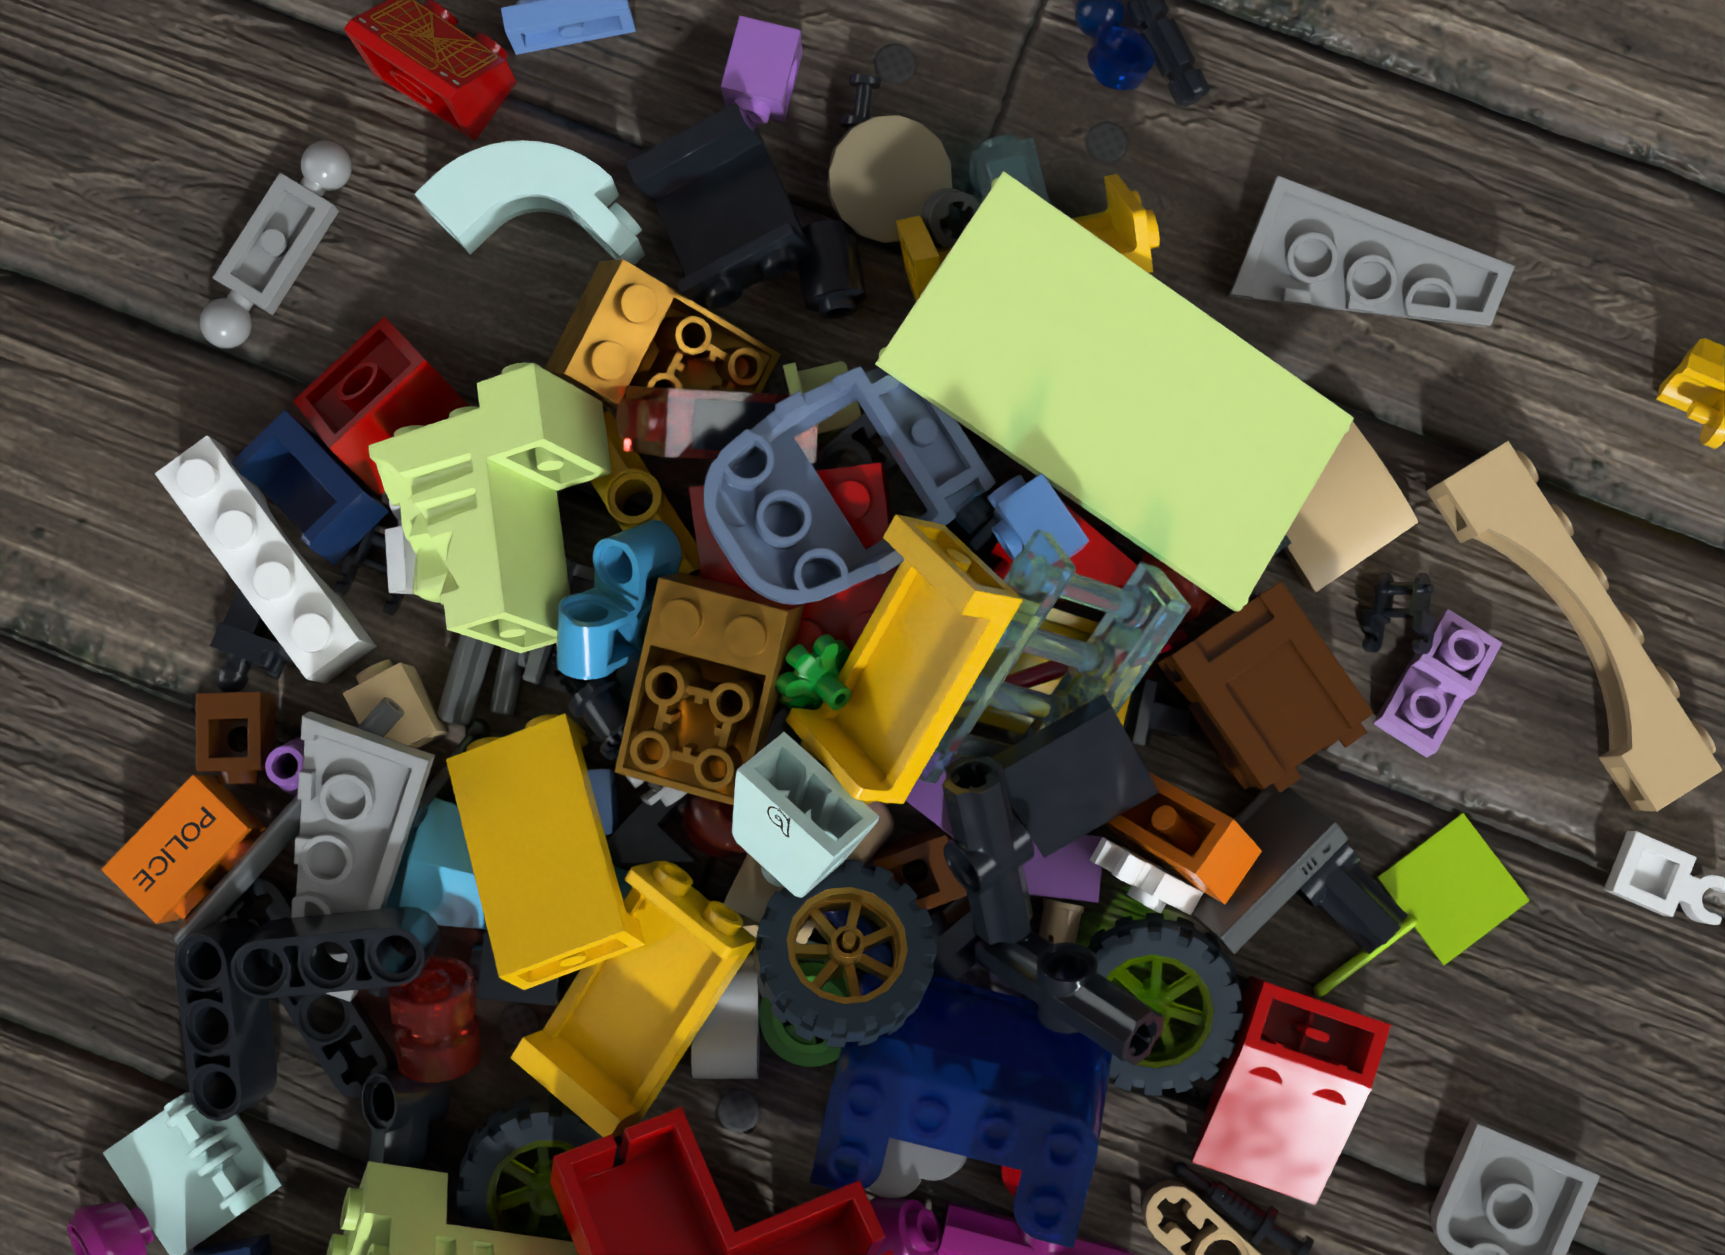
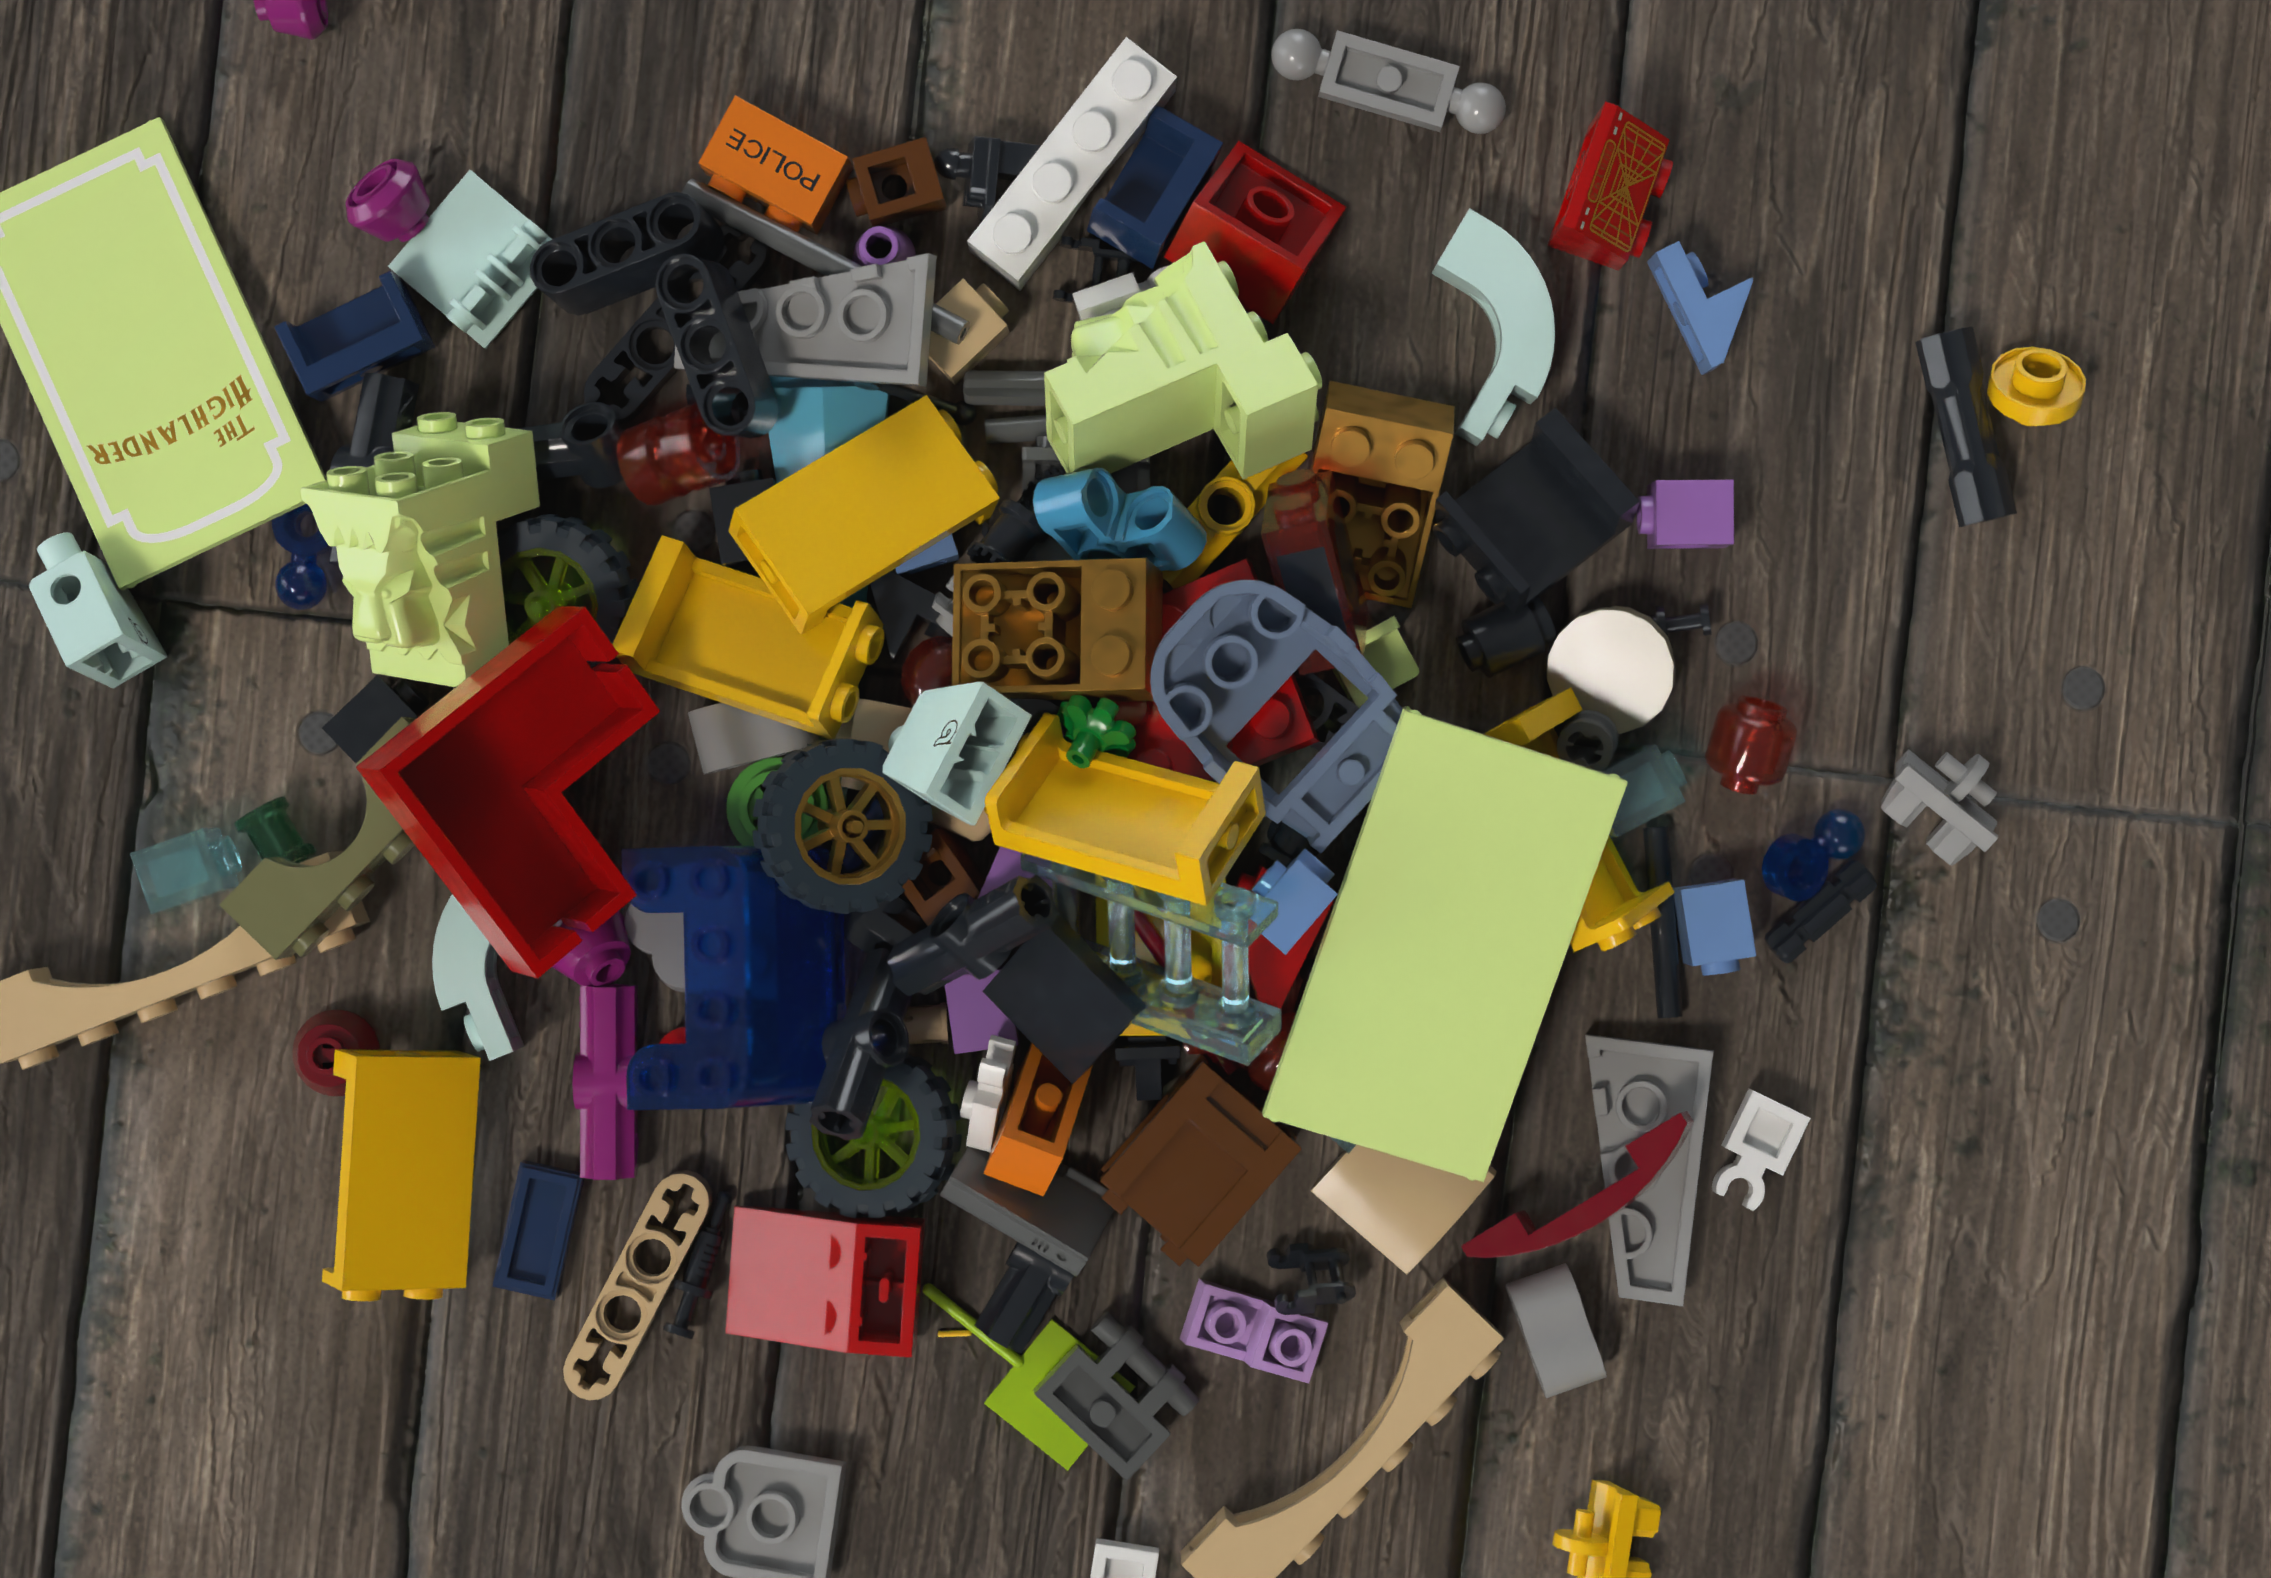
camera: 75 degrees right, 5 degrees up
(994, 68) = (1751, 744): none -> clear red head
(1152, 197) = (1664, 928): none -> black bar
(1157, 145) = (1714, 925): none -> medium blue brick
(1368, 976) = (954, 1333): none -> yellow piece
(1370, 153) = (1763, 1138): none -> white plate
(1409, 407) = (1652, 1156): none -> dark red slope
(1482, 849) = (1102, 1410): none -> dark grey plate
(1507, 393) = (1556, 1330): none -> light grey axle

